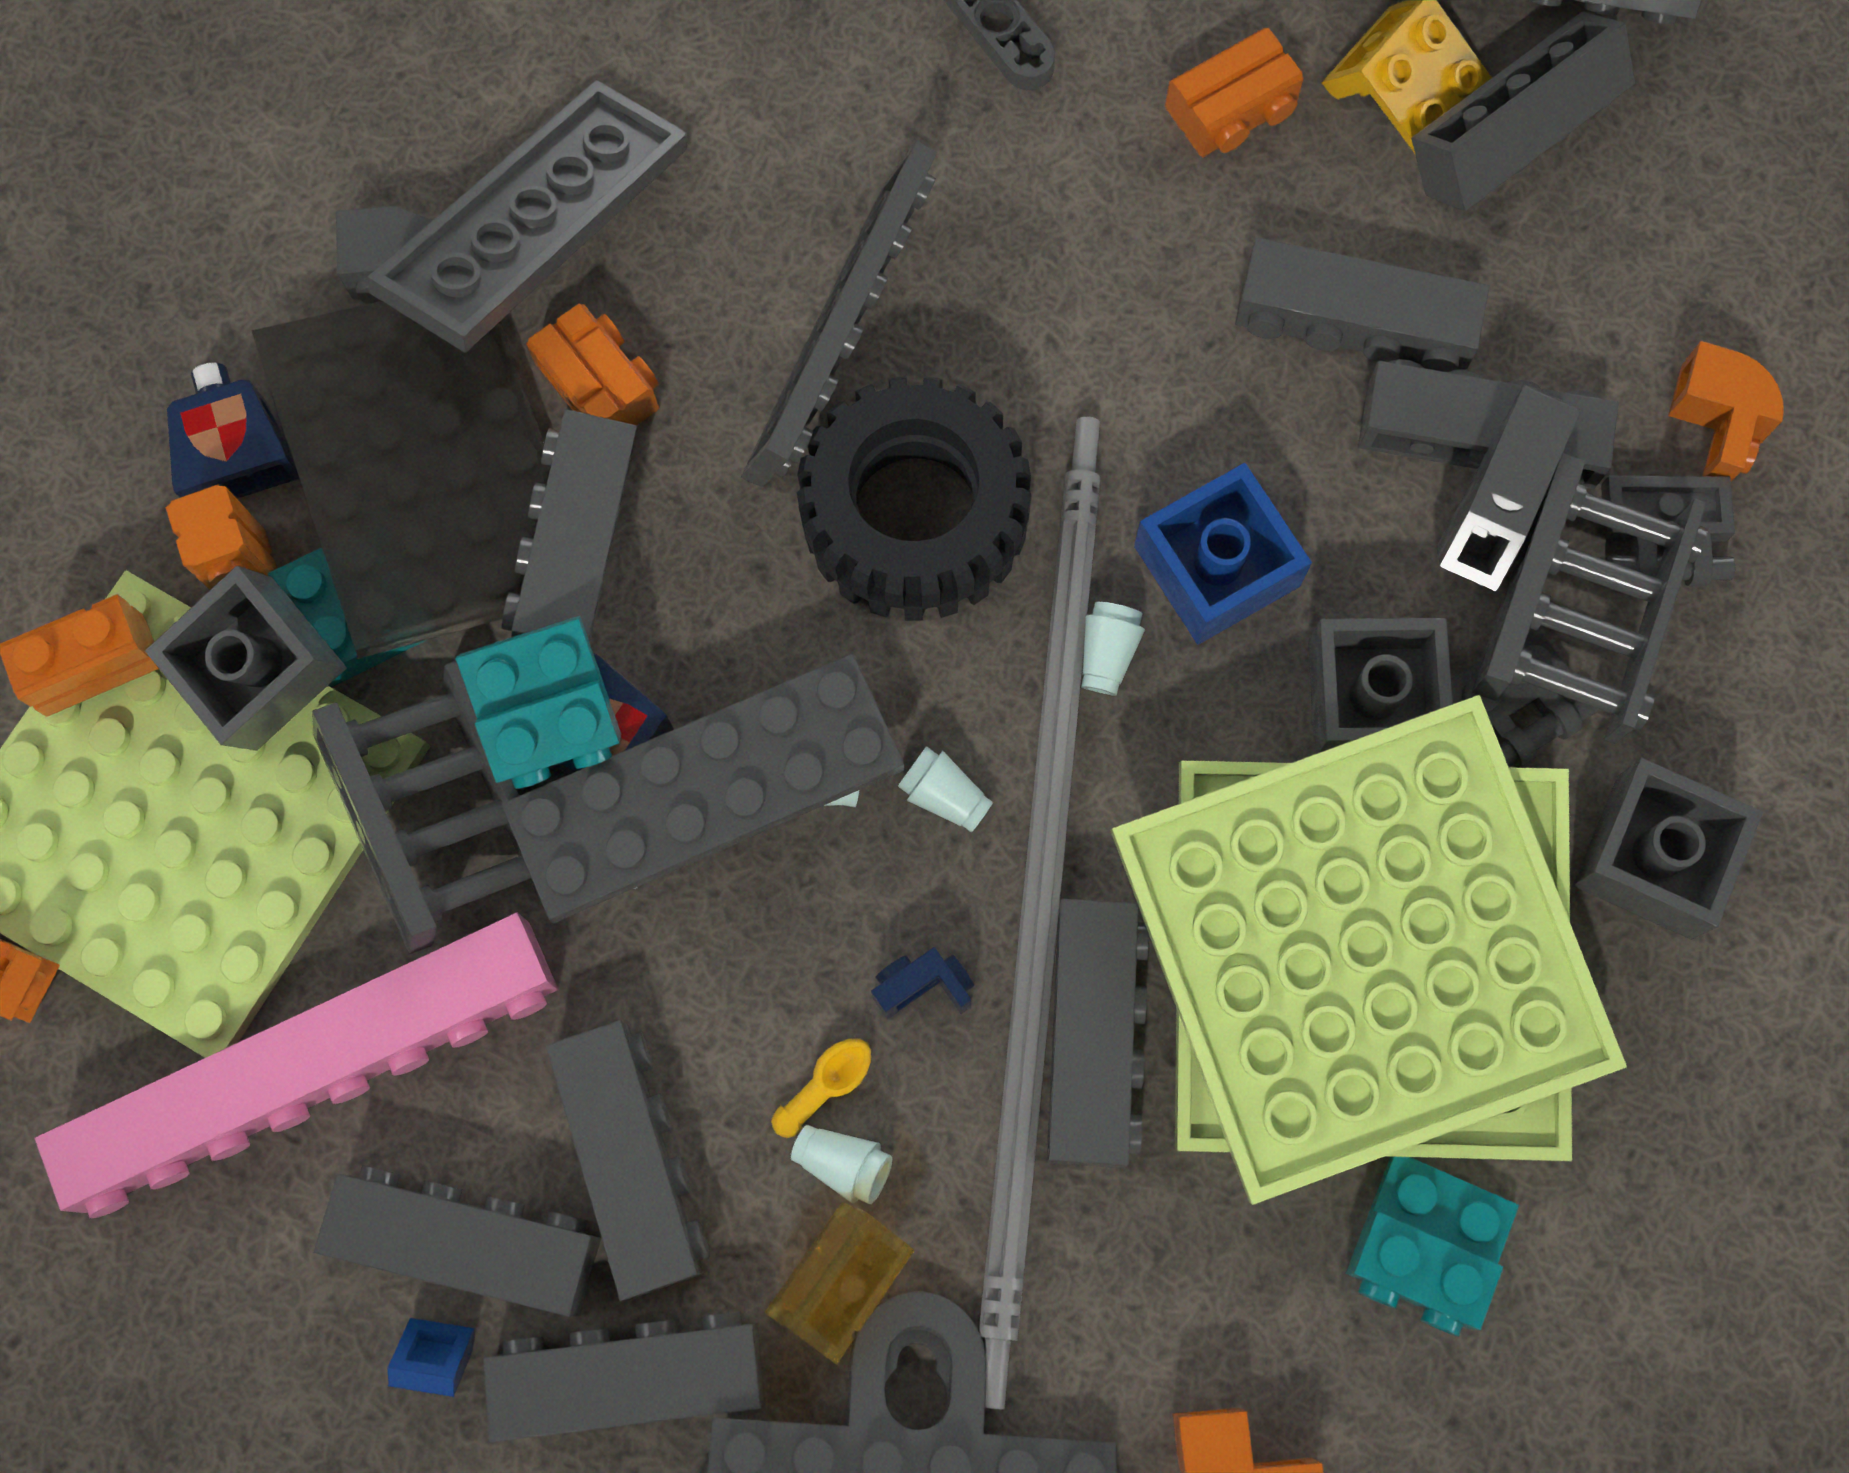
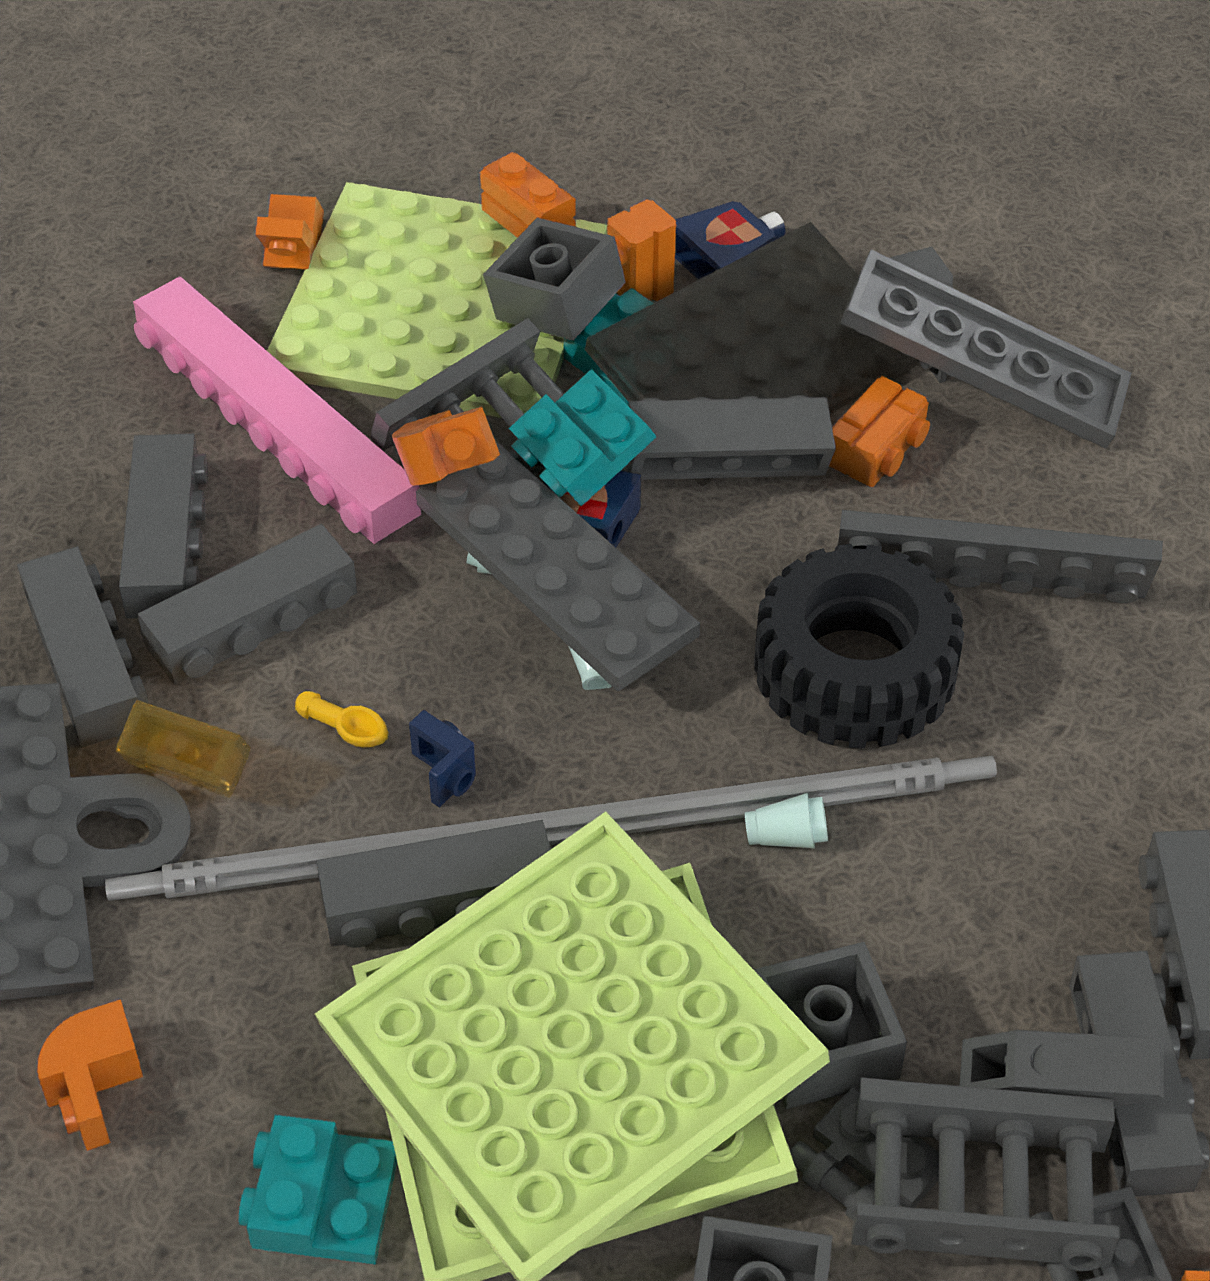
camera: 70 degrees right, 25 degrees down
(431, 1357) = (75, 526): blue plate -> none
(511, 875) = (444, 445): none -> orange brick
(843, 1162) = (282, 744): light aqua cone -> none
(945, 790) = (617, 735): light aqua cone -> none
(1221, 553) = (903, 874): blue brick -> none

